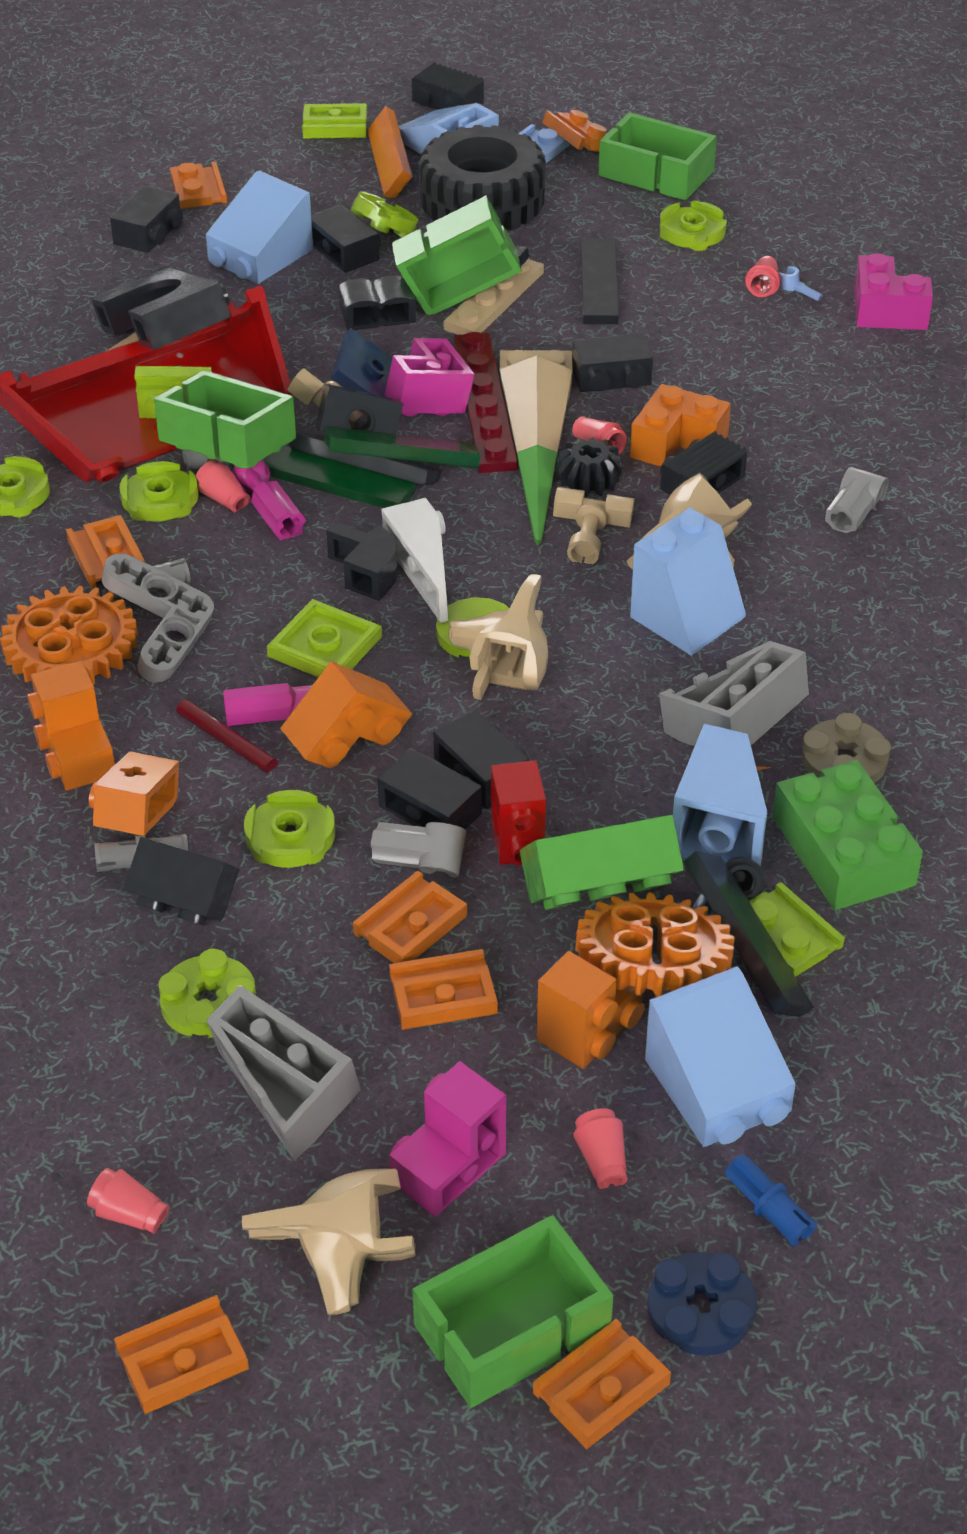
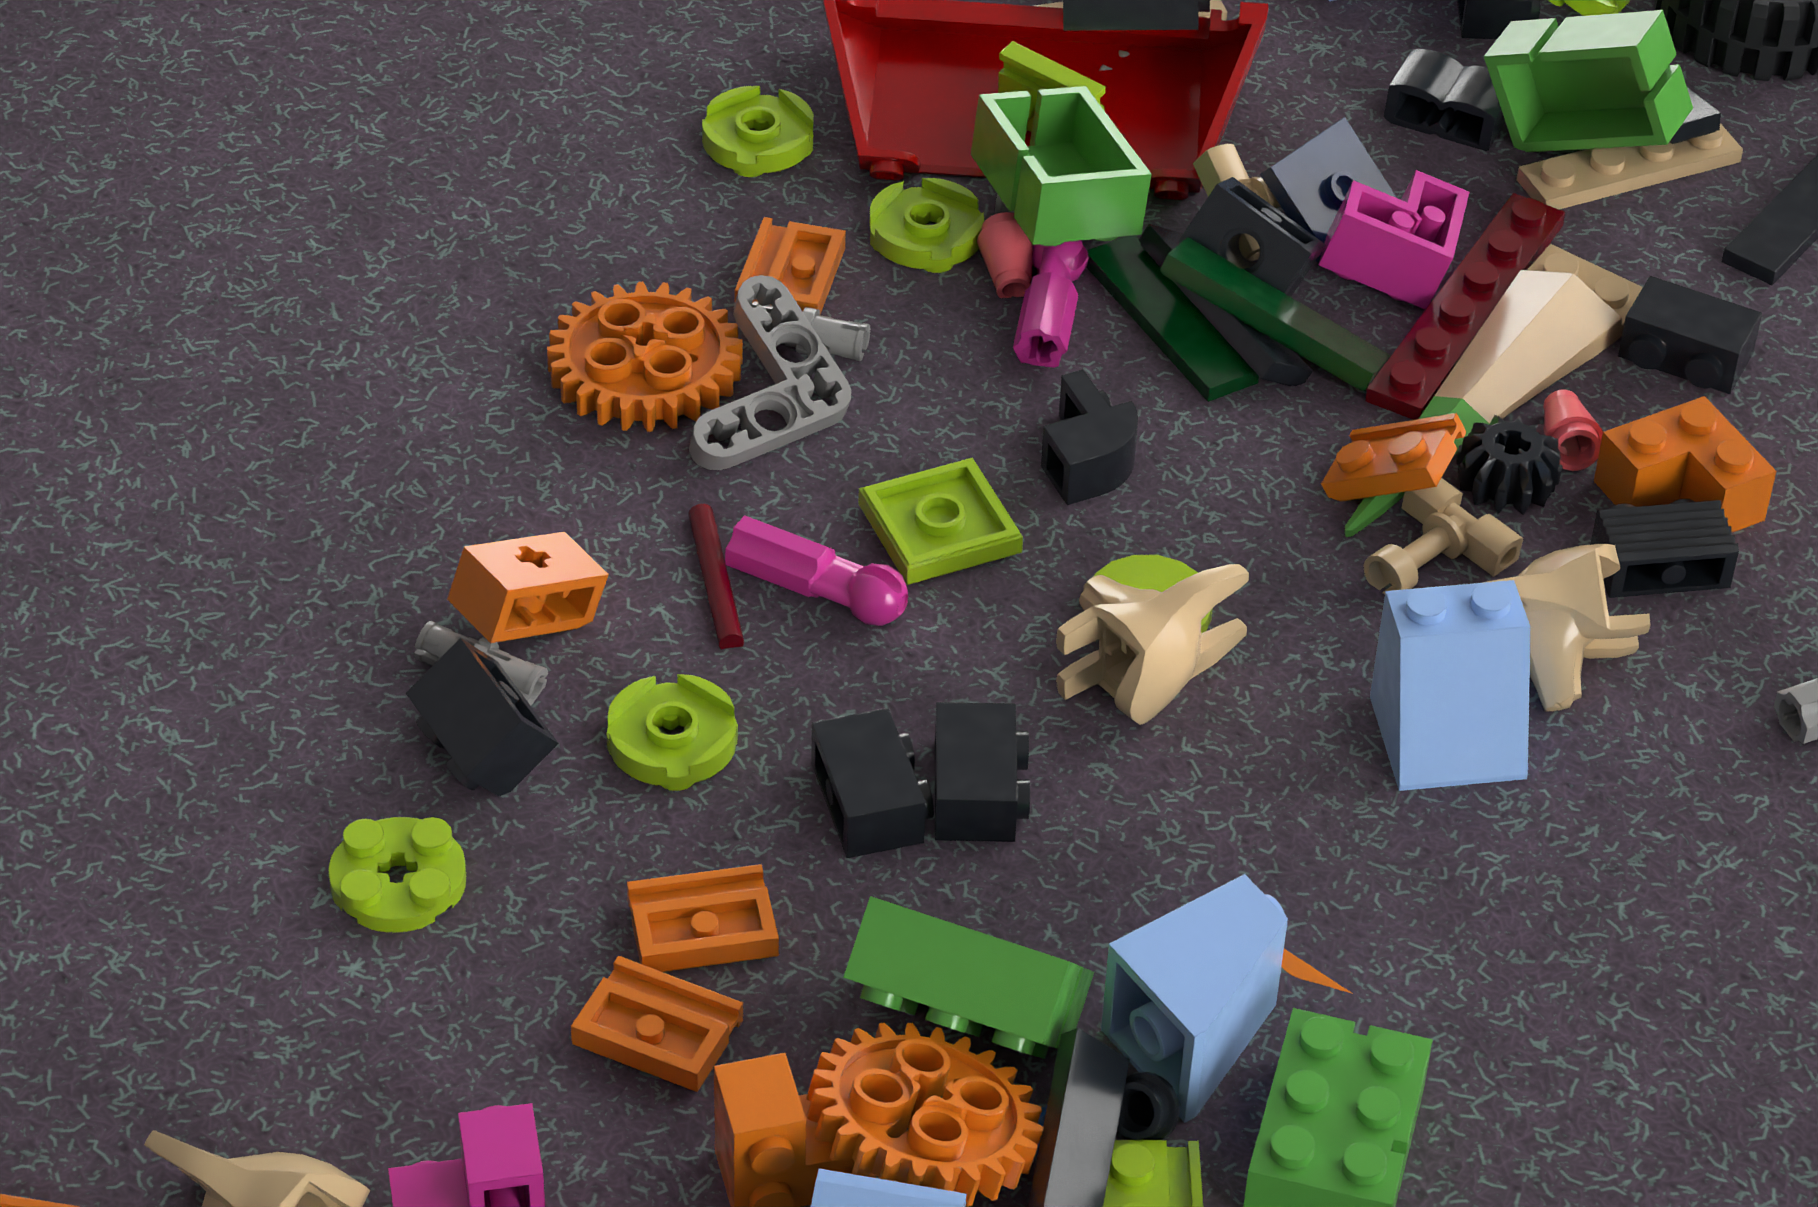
camera: 35 degrees right, 0 degrees up
(69, 725) = (532, 462): orange brick -> none
(126, 1201) = (92, 1047): coral cone -> none
(283, 1068) = (374, 1008): light grey wedge -> none
(340, 711) = (856, 613): orange brick -> none
(420, 550) = (1168, 467): white slope -> none
(427, 848) = (798, 842): light grey piece -> none
(516, 808) = (935, 852): red brick -> none
(534, 490) = (1394, 458): none -> orange plate
(743, 698) = (1376, 882): light grey wedge -> none
(845, 732) = (1484, 1001): dark tan plate -> none

